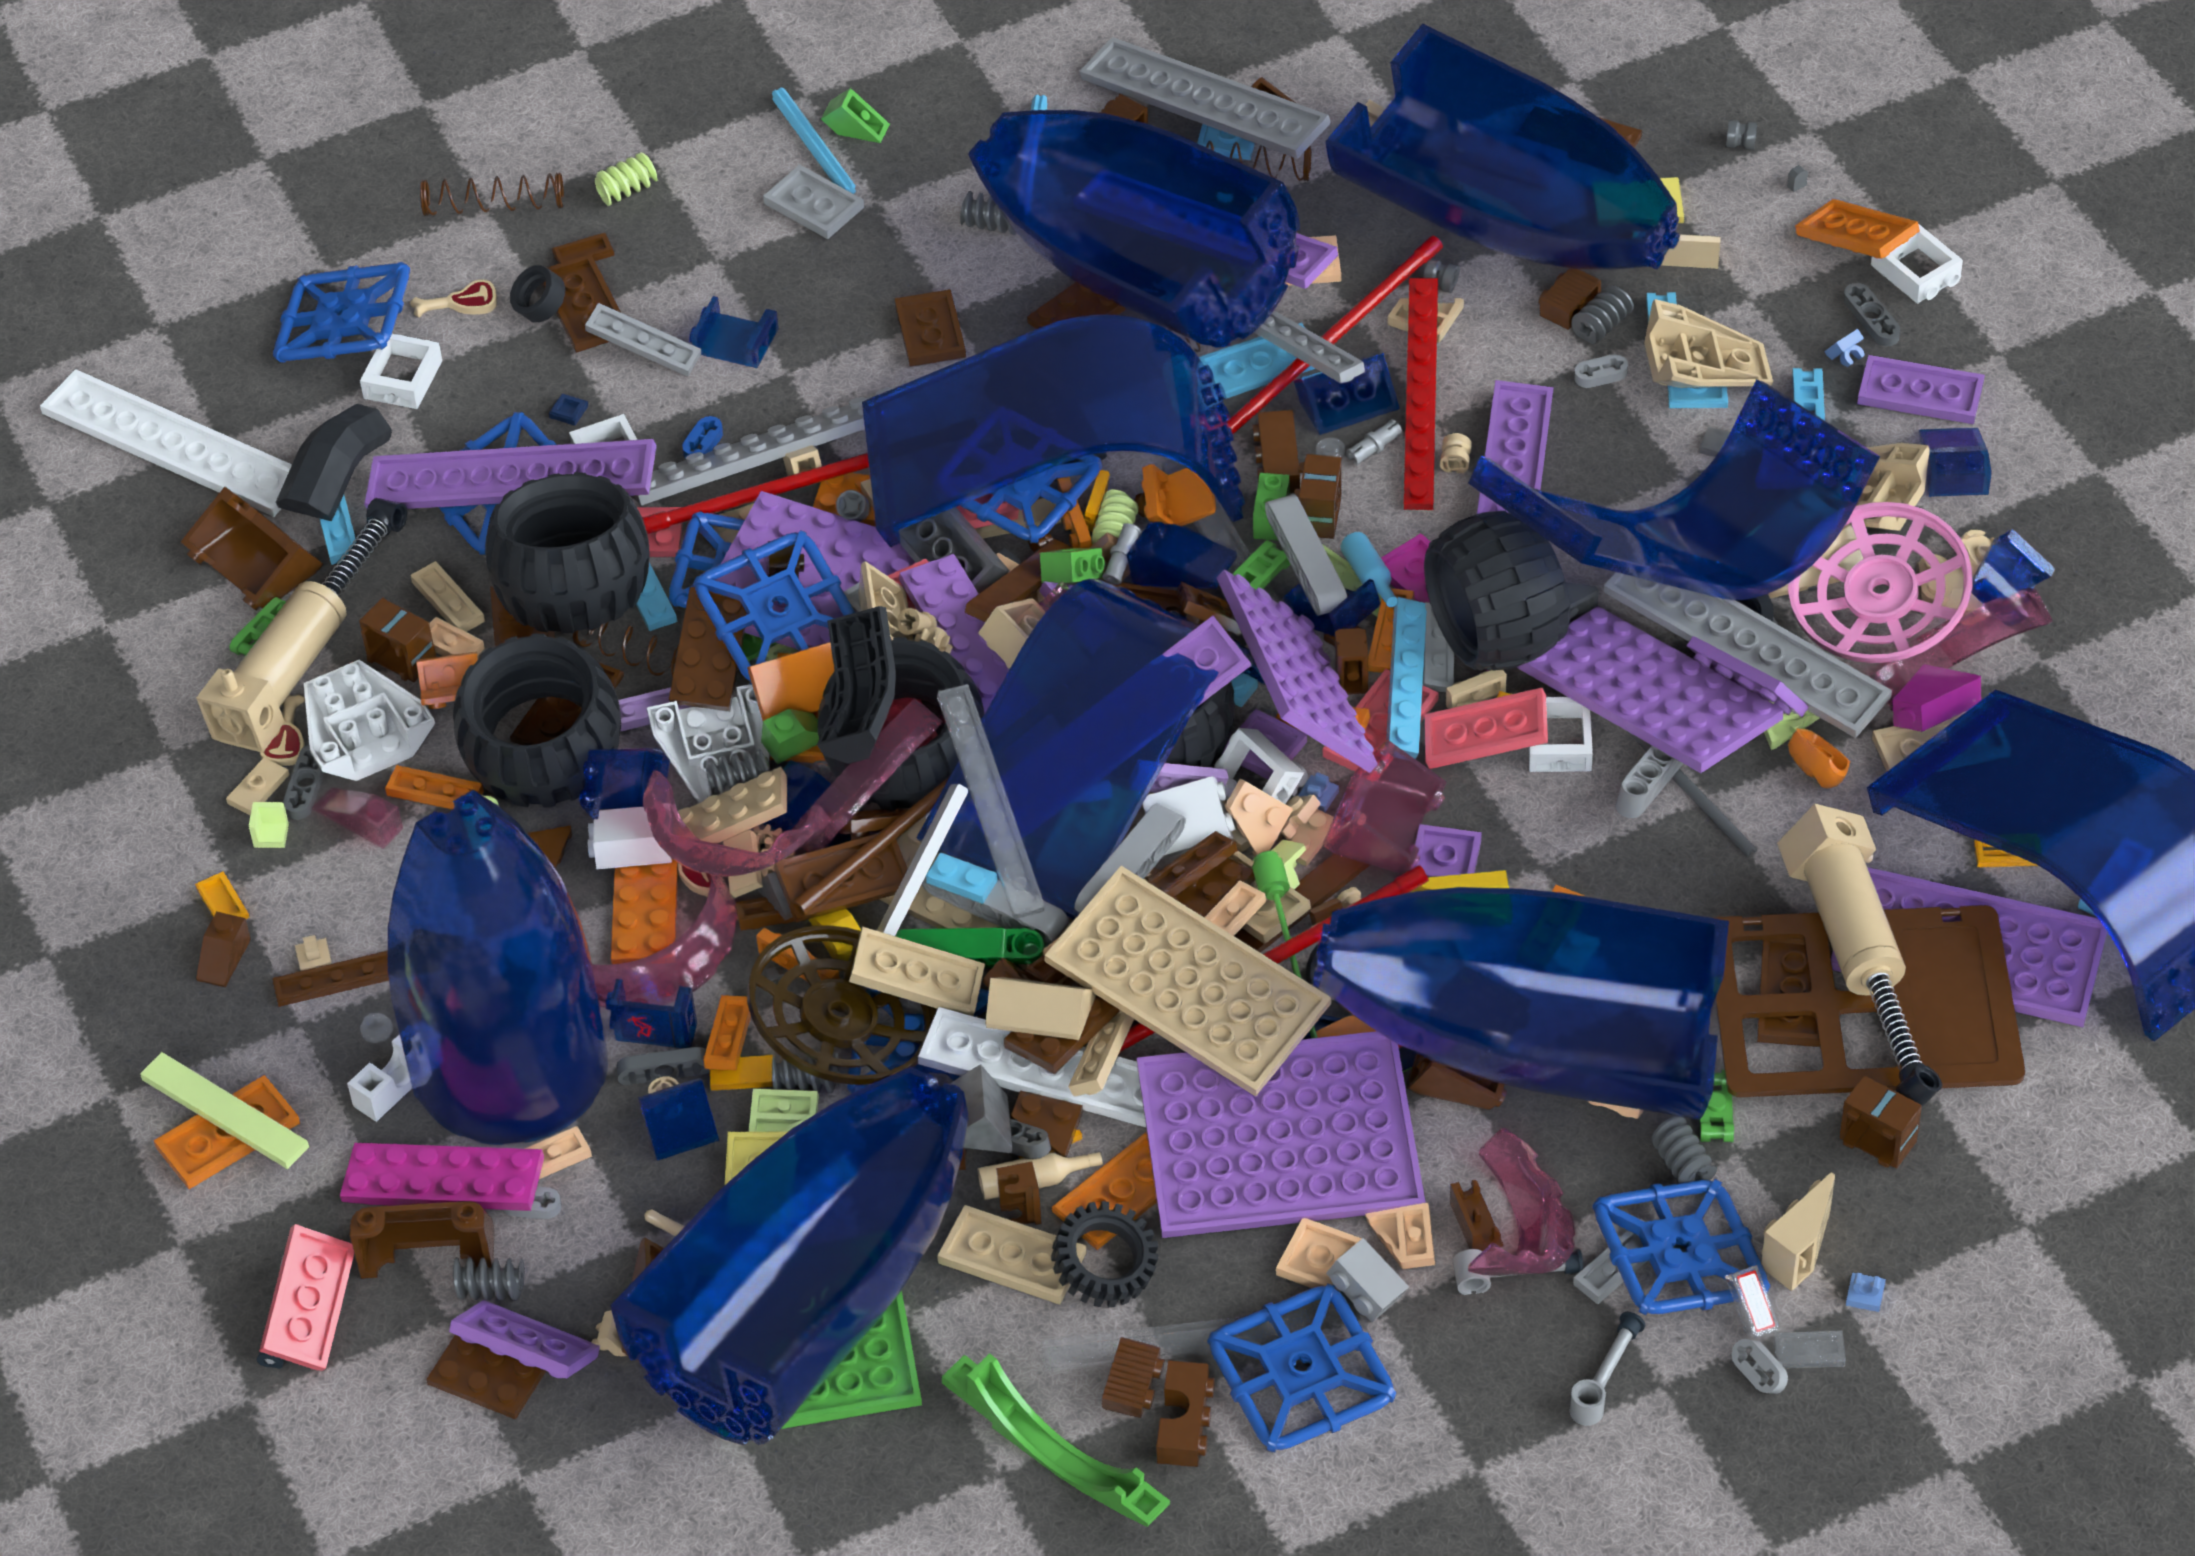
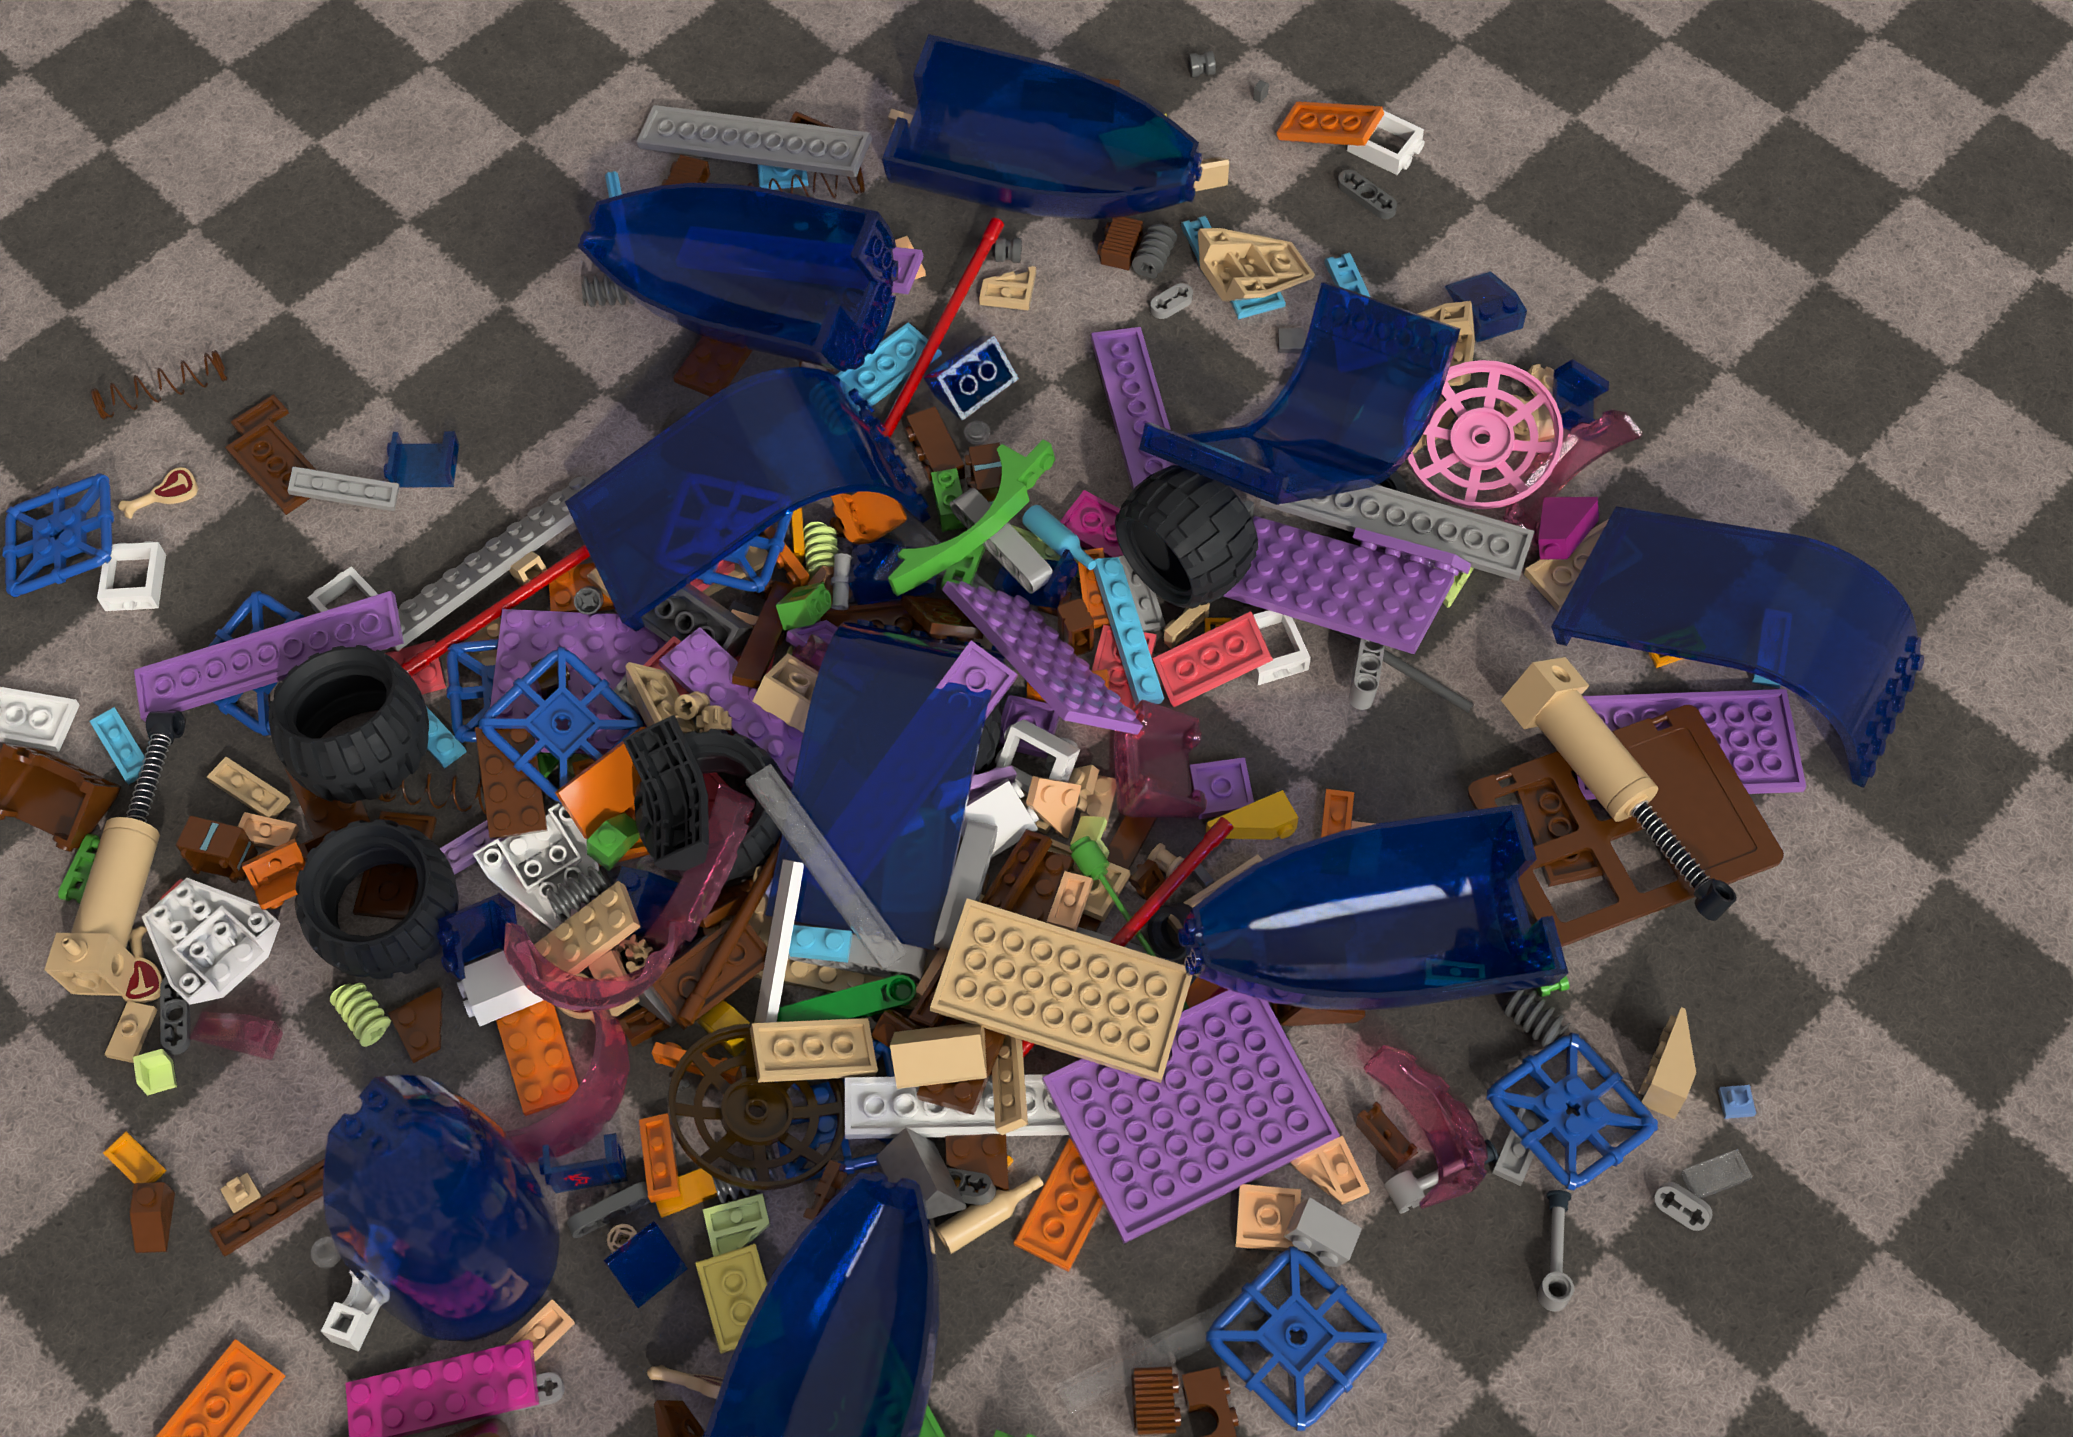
camera: 20 degrees left, 10 degrees up
(224, 1110) = (209, 1392): yellowish green tile -> none
(329, 459) = (94, 684): black piece -> none
(428, 787) = (297, 986): orange plate -> none
(525, 286) = (218, 470): black tyre -> none
(568, 409) = (297, 572): dark blue tile -> none
(624, 176) = (274, 338): yellowish green piece -> none
(697, 436) = (423, 566): blue beam -> none
(812, 140) = (429, 263): medium azure axle -> none
(813, 201) = (449, 318): light grey plate -> none
(854, 118) = (458, 232): bright green slope -> none
(930, 328) = (593, 410): reddish brown plate -> none
(1005, 1253) = (999, 1304): tan plate -> none
(1019, 1191) = (988, 1240): reddish brown hinge -> none
(1115, 1222) = (1055, 1302): black tyre -> none
(1310, 348) = (934, 347): light grey plate -> none
(1322, 789) = (1091, 755): medium blue tile -> none
(1340, 493) = (1018, 476): none -> bright green slope
(1374, 442) = (1011, 415): light grey pin -> none
(1421, 394) = (1034, 362): red plate -> none
(1455, 453) = (1083, 408): tan wheel -> none
(1752, 1302) = (1653, 1146): slope -> none
(1818, 758) = (1492, 606): orange piece -> none
(1846, 346) = (1358, 229): medium blue tile -> none
(1880, 1122) = (1689, 938): reddish brown container -> none
(1921, 389) = (1434, 250): medium lavender plate -> none

